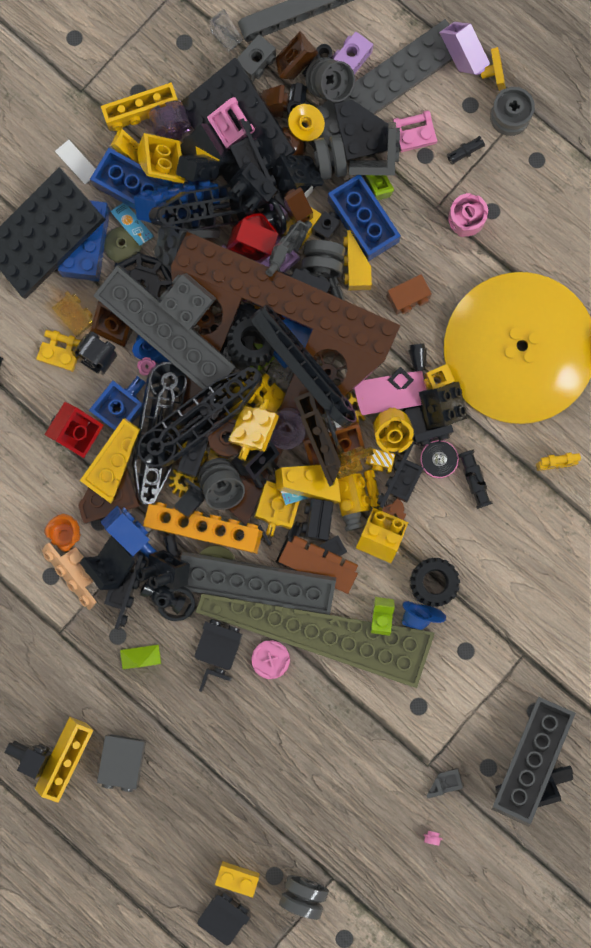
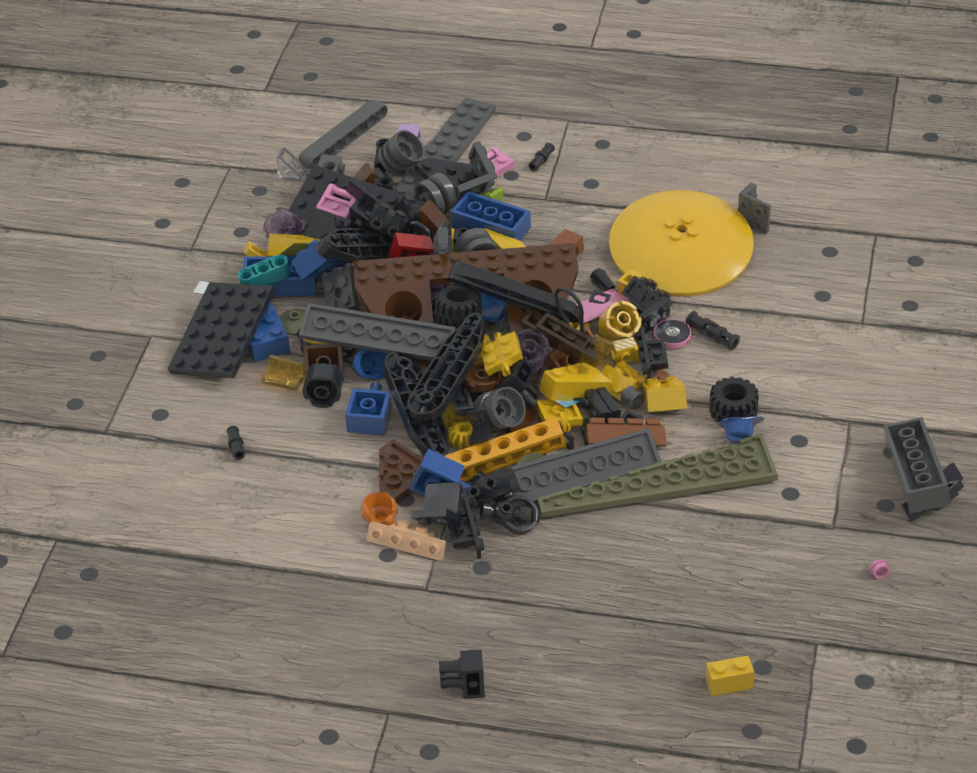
camera: 30 degrees left, 40 degrees down
(58, 356) = (287, 409): yellow plate -> none
(63, 759) = (498, 663): yellow brick -> none
(74, 429) = (340, 431): red piece -> none
(100, 184) = (265, 271): none -> teal beam
(109, 465) = (390, 439): yellow wing -> none
(121, 762) = (554, 644): dark grey brick -> none
(132, 225) = (289, 304): medium azure sticker -> none
(136, 107) = (250, 230): yellow brick -> none
(140, 657) = (514, 571): lime slope -> none
(141, 365) = (373, 376): bright pink plate -> none
(186, 300) = (384, 295): dark grey brick -> none
(216, 672) = (594, 545): black bracket -> none
(218, 644) = (579, 522): black bracket -> none
(224, 917) = (740, 708): black bracket -> none
(270, 659) = (634, 519): bright pink tile -> none
(295, 57) = (362, 151): reddish brown slope -> none
(304, 897) = (800, 651): dark grey wheel -> none
(309, 115) = (399, 182): yellow dish -> none
(382, 616) = (706, 439): lime slope -> none
(446, 782) = (859, 528): dark grey slope -> none
(465, 48) = (495, 96): lavender brick -> none
(467, 215) = (574, 186): bright pink brick -> none
(495, 69) = (527, 106): yellow tile -> none
(512, 111) = (560, 120): dark grey wheel -> none
(561, 461) = (770, 292): yellow plate -> none

